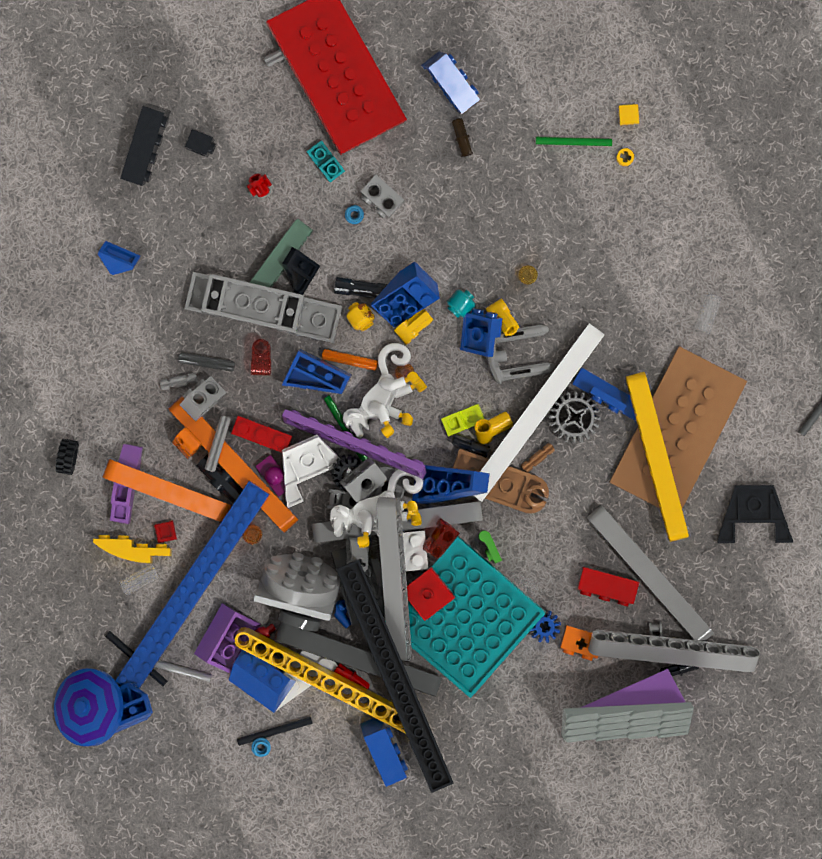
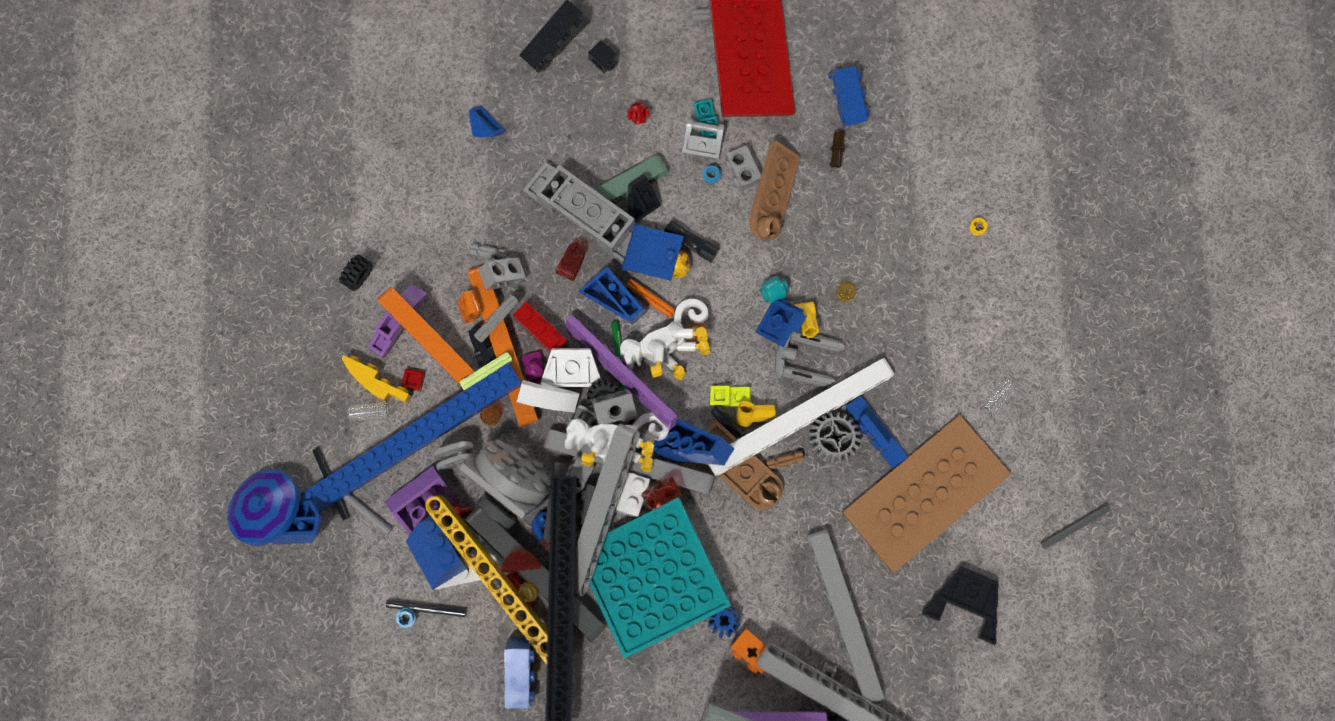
camera: 15 degrees right, 10 degrees down
(206, 362) = (521, 245): dark grey axle -> none
(231, 497) = (485, 371): none -> yellowish green axle
(238, 586) = (453, 455): none -> light grey wheel
(297, 496) = (547, 397): none -> white slope
(332, 190) = (701, 144): none -> light grey plate
(333, 317) = (652, 252): none -> blue container
(342, 655) = (520, 561): none -> clear red plate
(360, 678) = (528, 592): none -> clear yellow plate
(406, 295) = (727, 261): blue slope -> none
(410, 328) = (719, 293): yellow piece -> none
(420, 208) = (773, 191): none -> medium nougat plate
(428, 594) = (627, 540): red plate -> none
(492, 552) = (704, 527): bright green plate -> none
(573, 141) = (937, 194): green bar -> none
(607, 586) = (800, 609): red brick -> none
(628, 114) = (996, 191): yellow tile -> none
(657, 456) = (898, 507): yellow beam -> none

